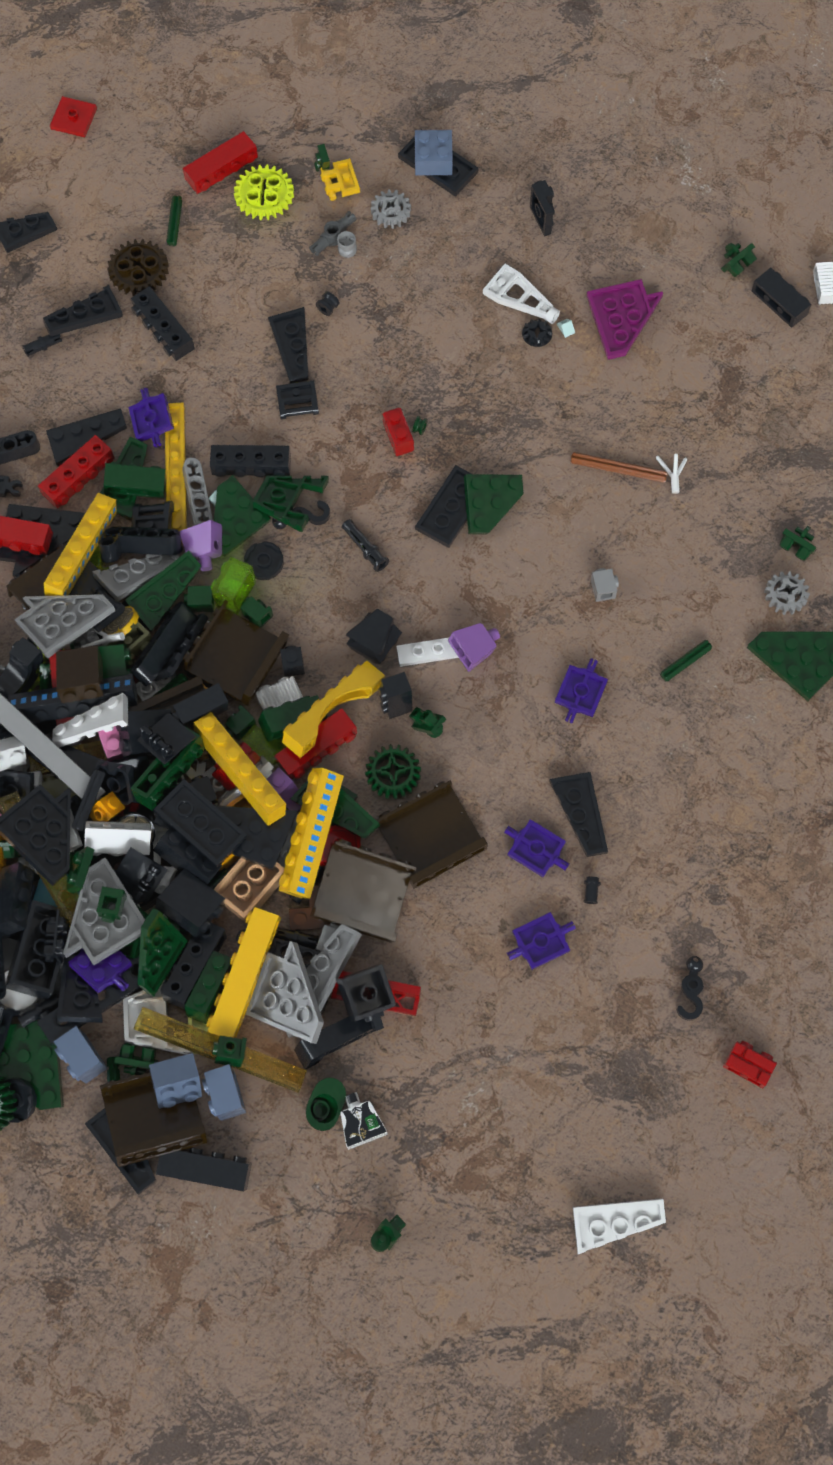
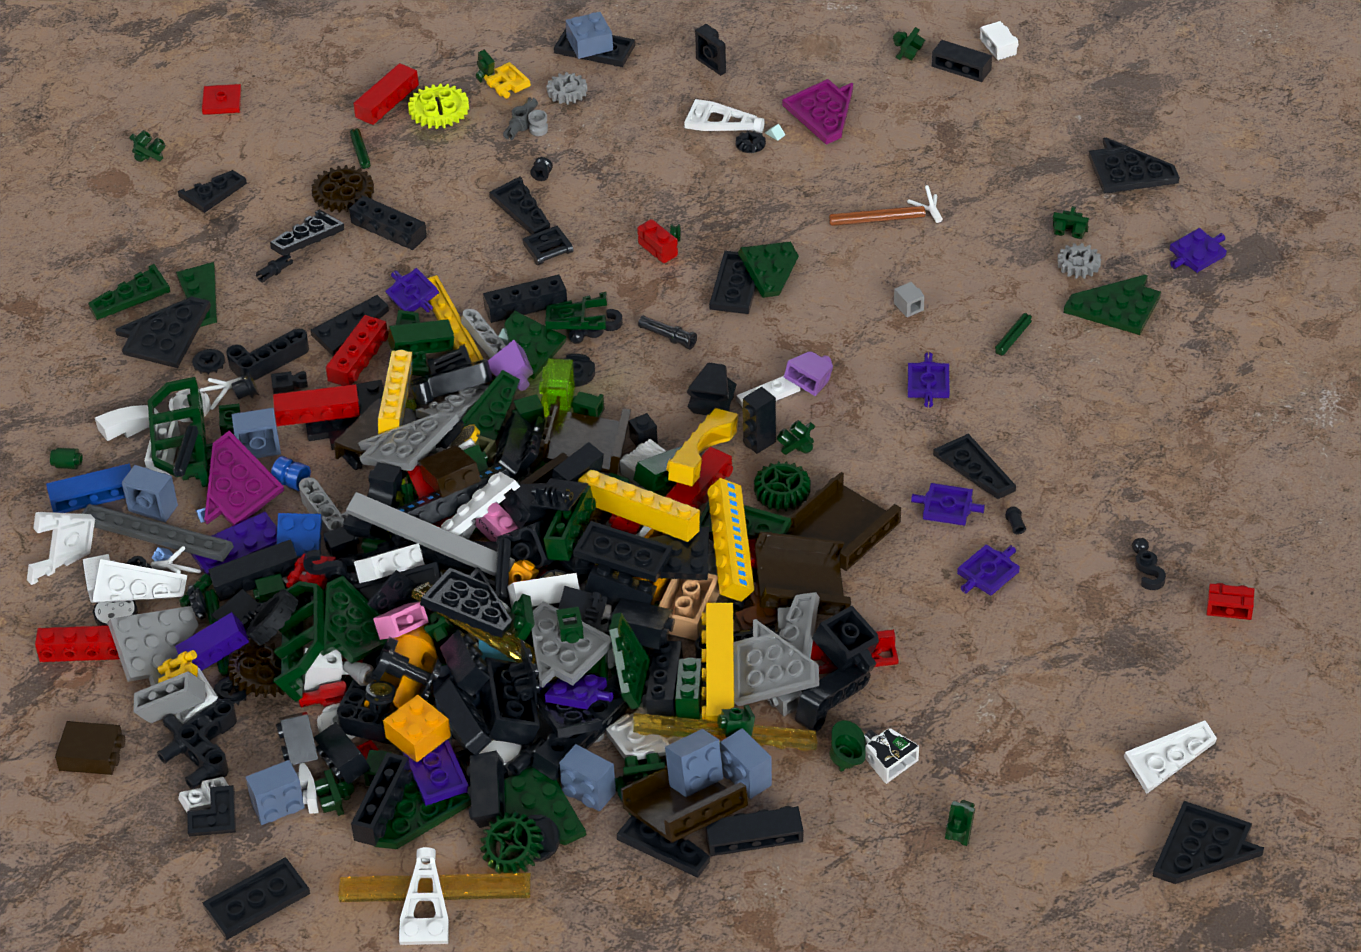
camera: 20 degrees left, 25 degrees down
(600, 1337) = (1203, 844): none -> black wing

